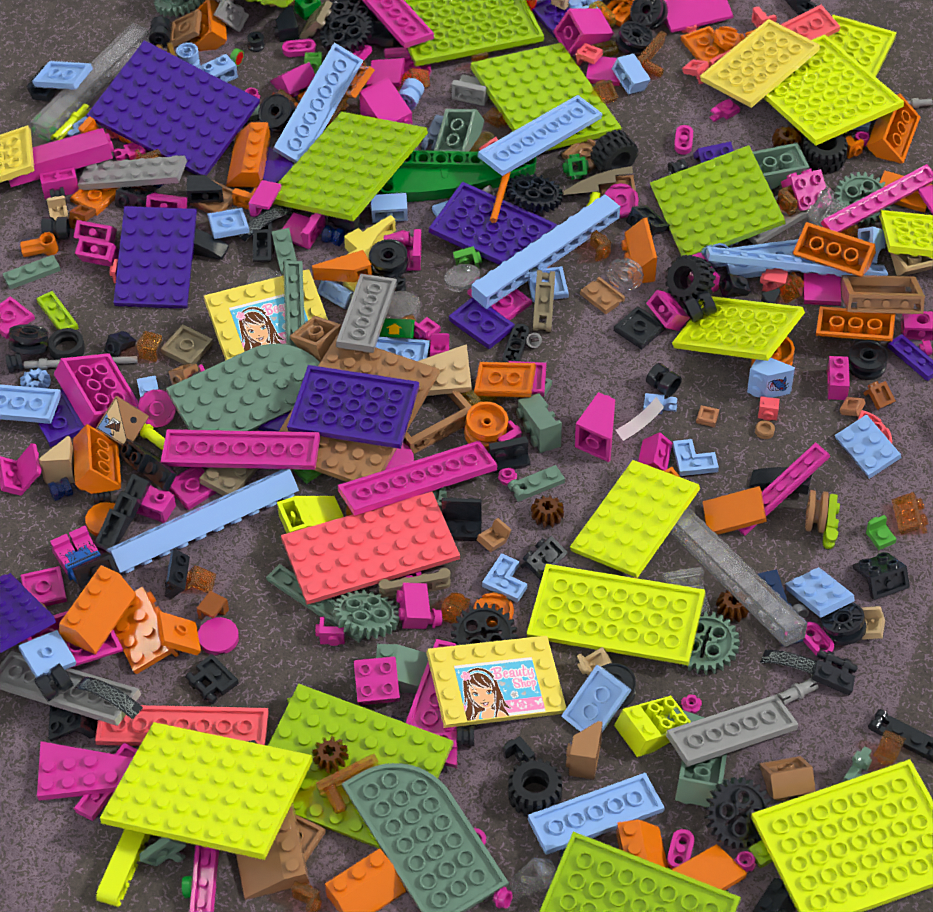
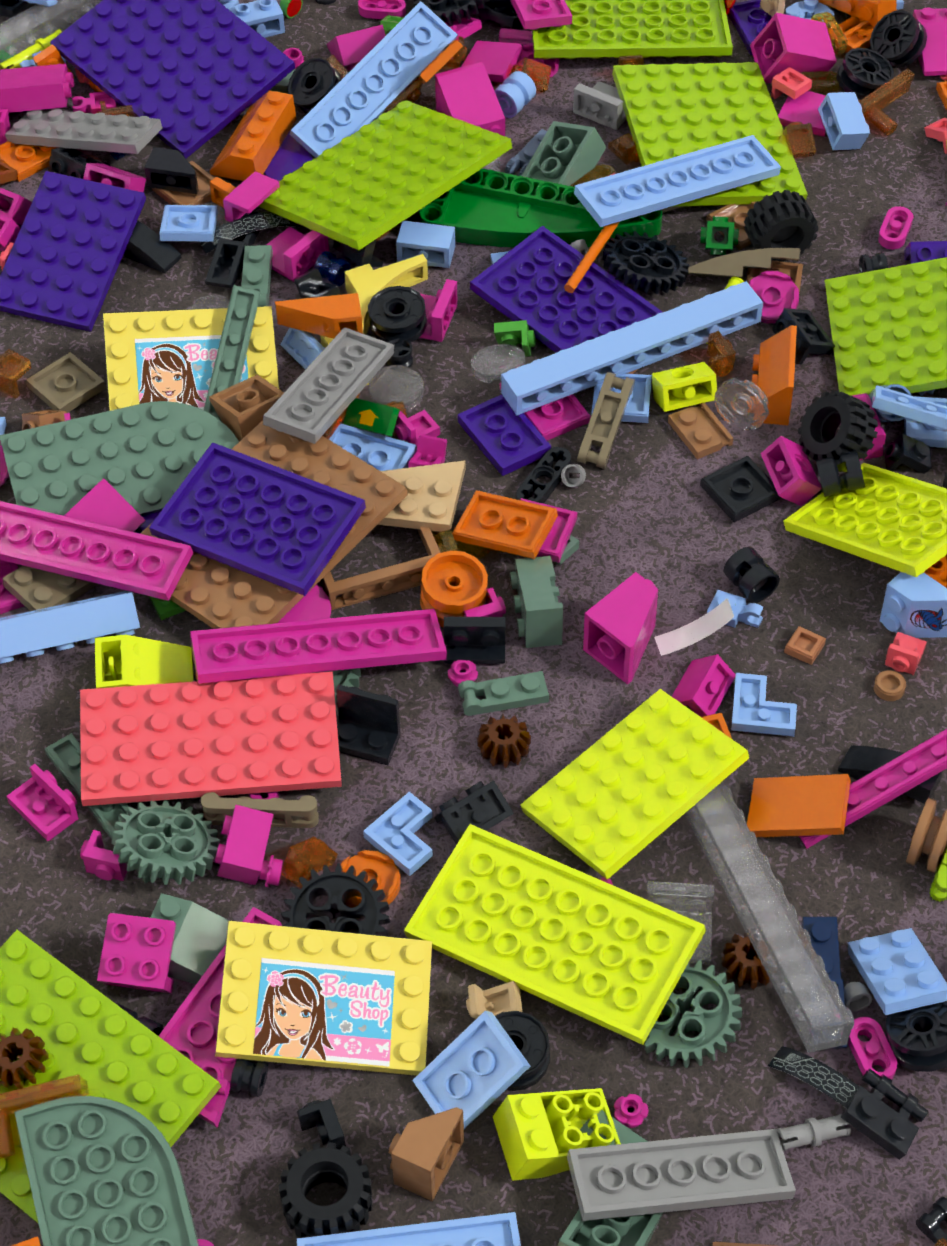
camera: 15 degrees right, 0 degrees up
(250, 420) = (106, 507): none -> dark pink tile
(280, 608) = (44, 803): none -> dark pink bracket
(326, 252) = (311, 285): none -> black bracket
(401, 236) = (426, 287): dark pink cone -> none
(495, 535) = (409, 762): medium nougat bracket -> none
(585, 269) = (684, 386): none -> neon yellow brick

